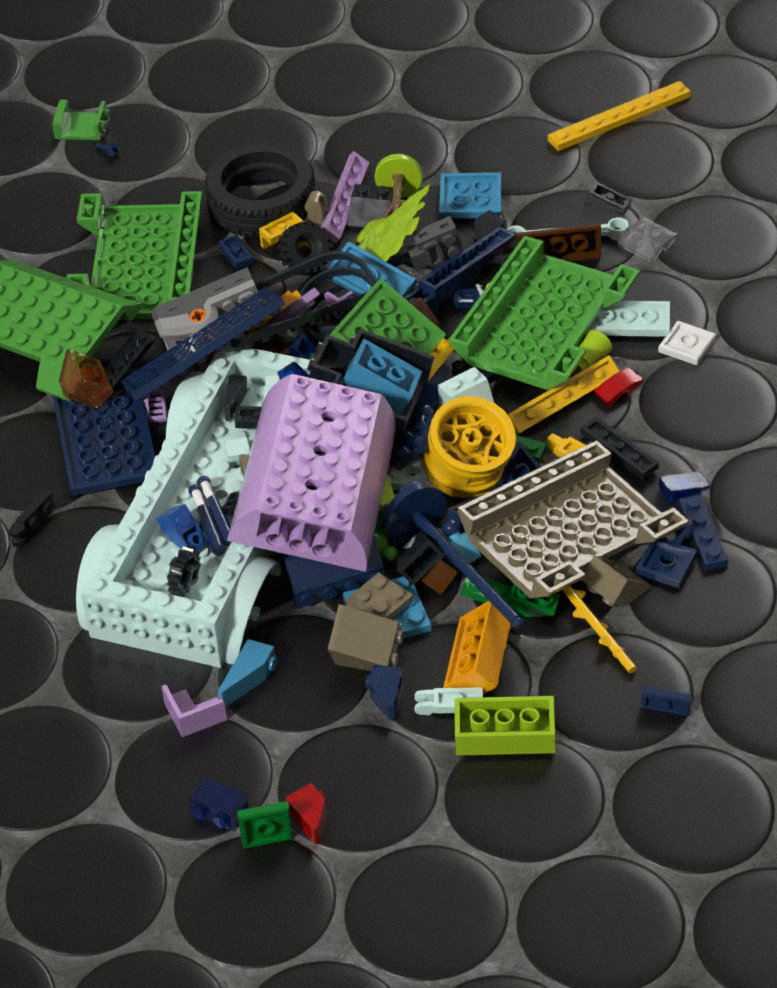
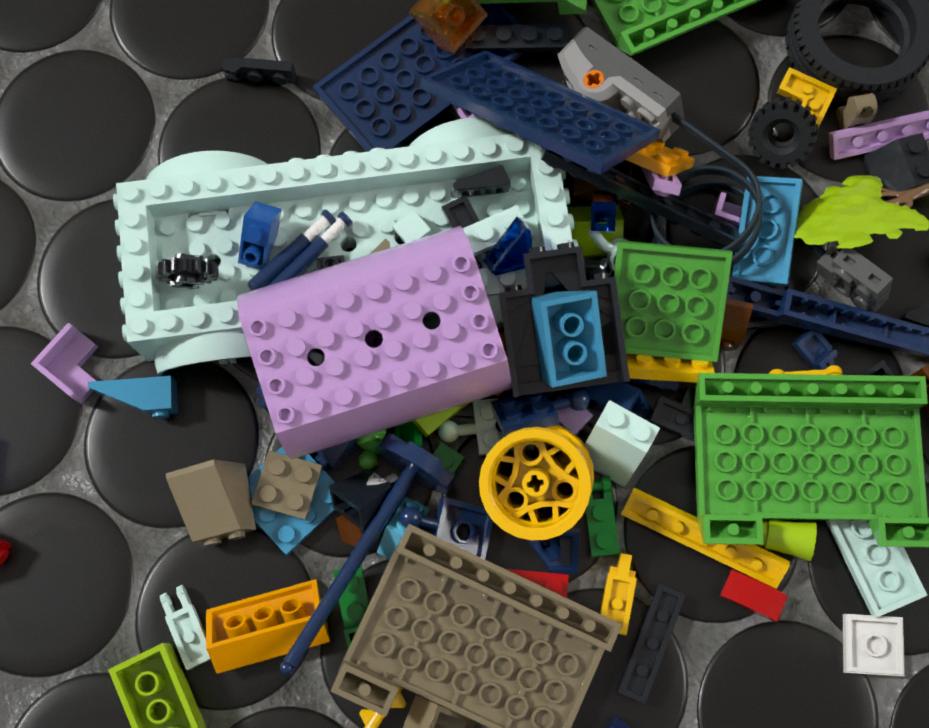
camera: 60 degrees right, 30 degrees up
(236, 252) = (752, 60): dark blue plate -> none
(385, 688) = (170, 551): dark blue slope -> none

